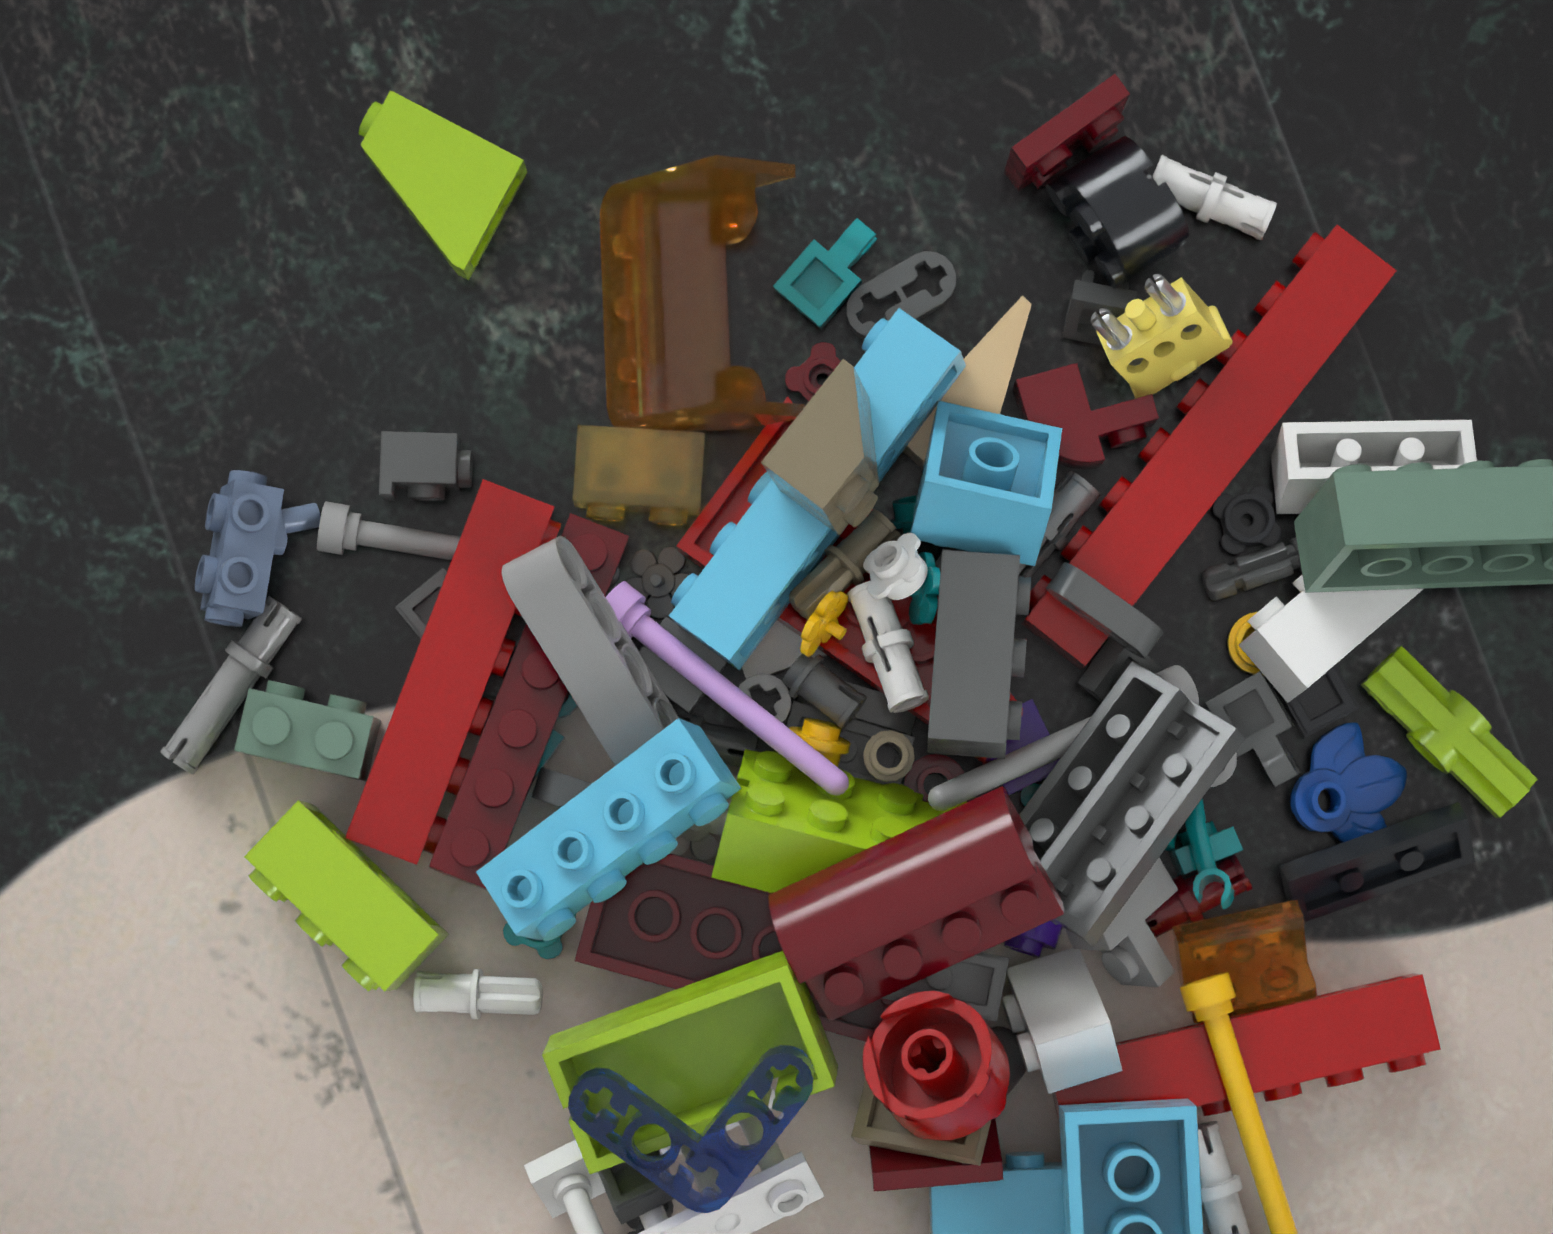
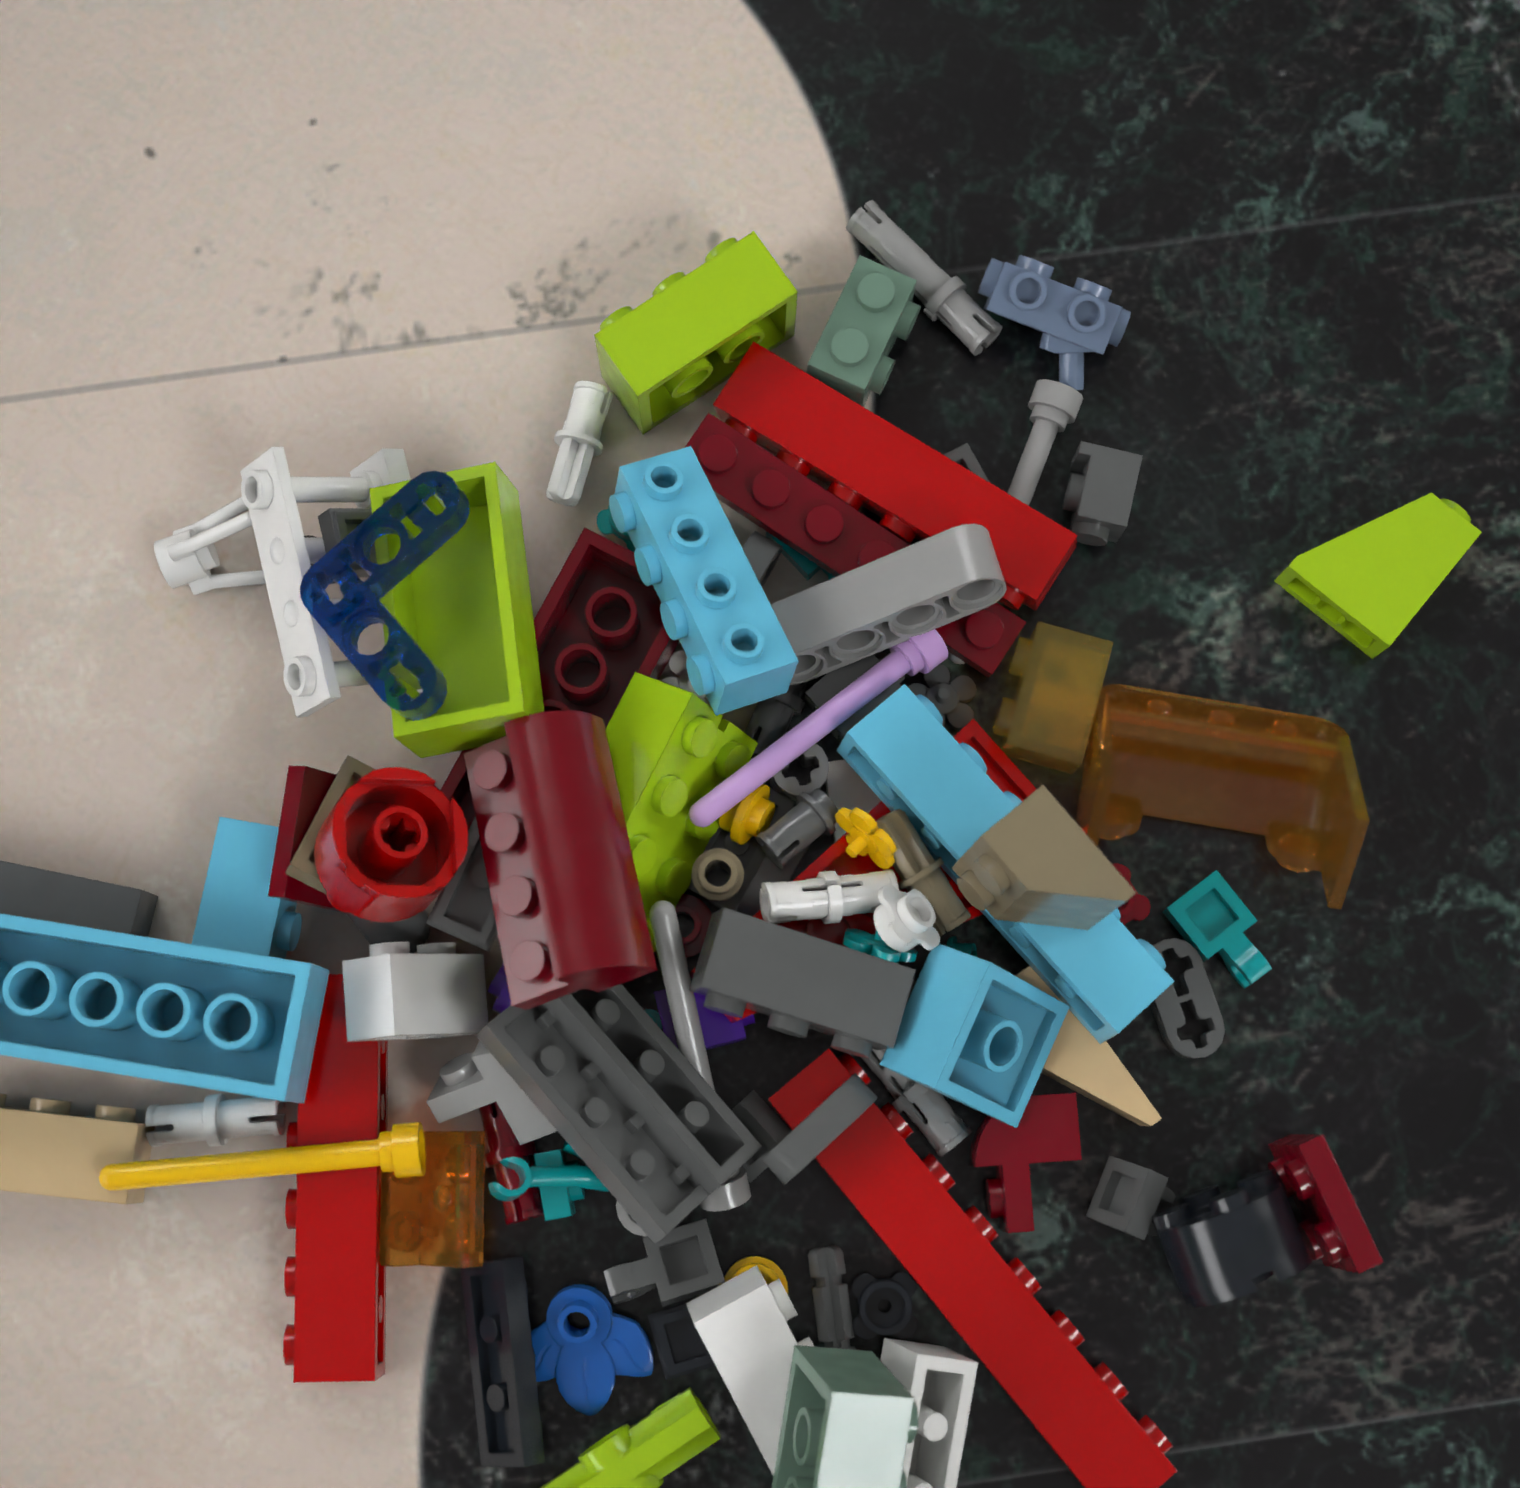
camera: 100 degrees right, 5 degrees down
(1161, 336) = (1093, 1255): light yellow piece -> none
(1215, 198) = (1226, 1347): white pin -> none

